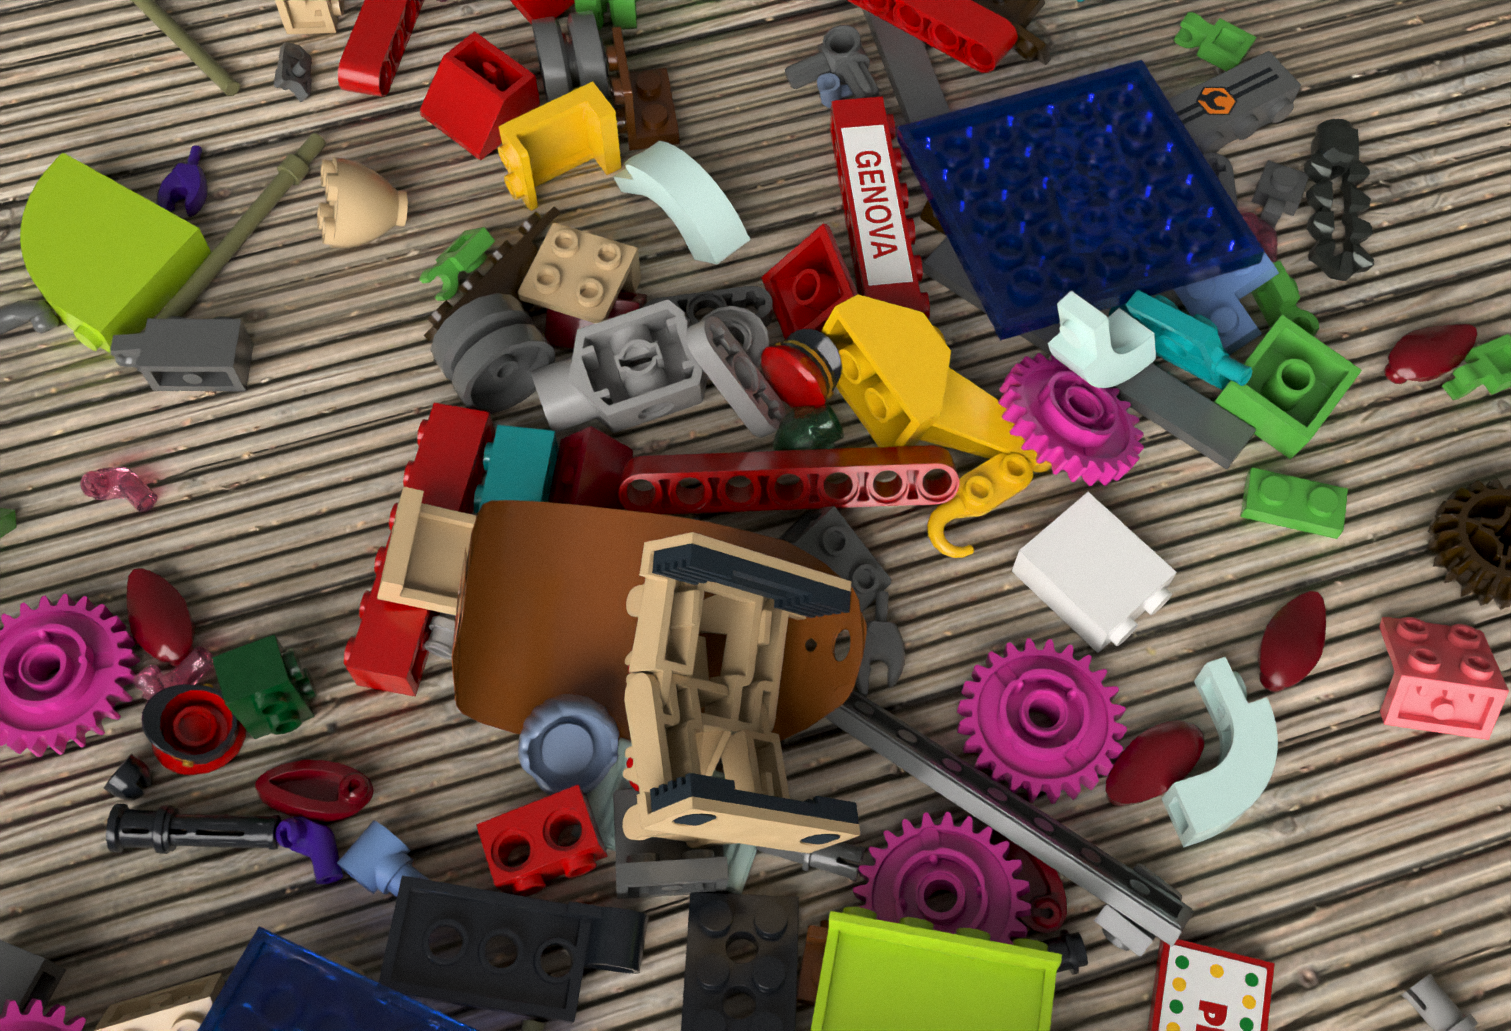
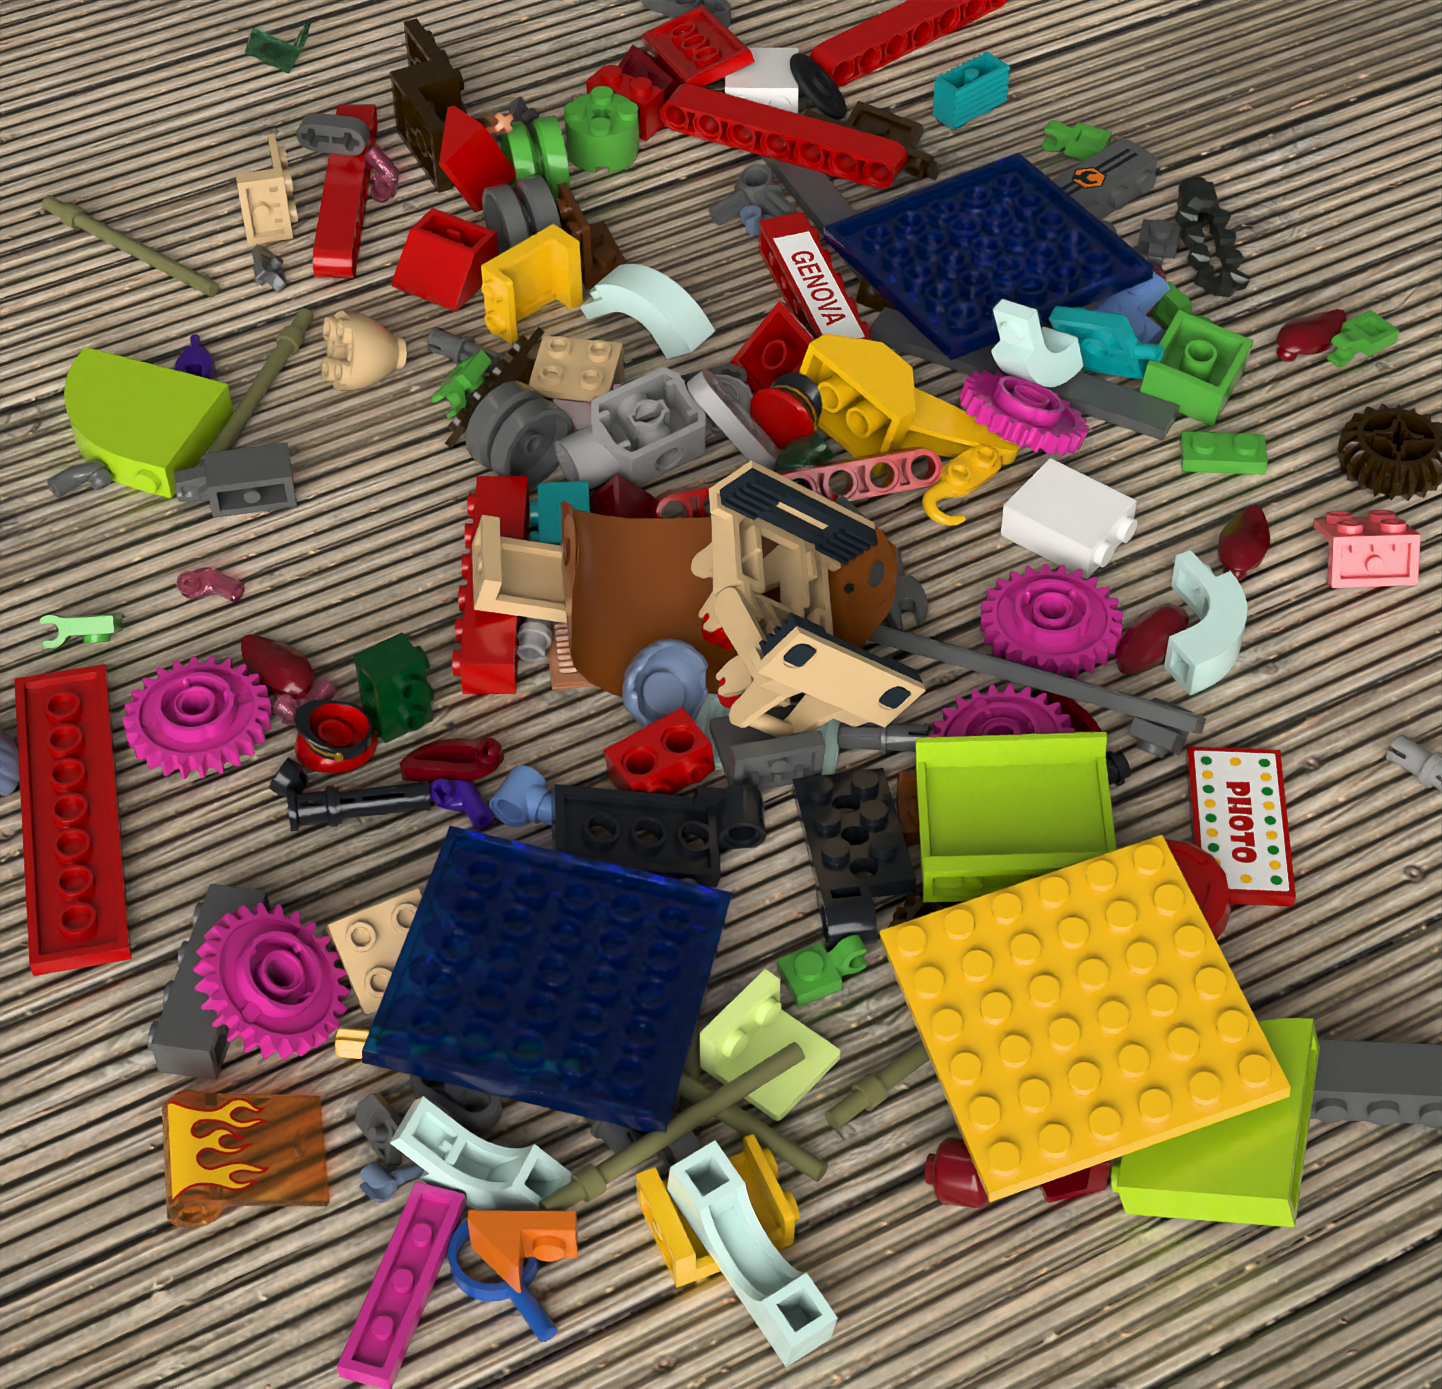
camera: 10 degrees left, 15 degrees down
(471, 213) = (458, 347): none -> dark grey axle

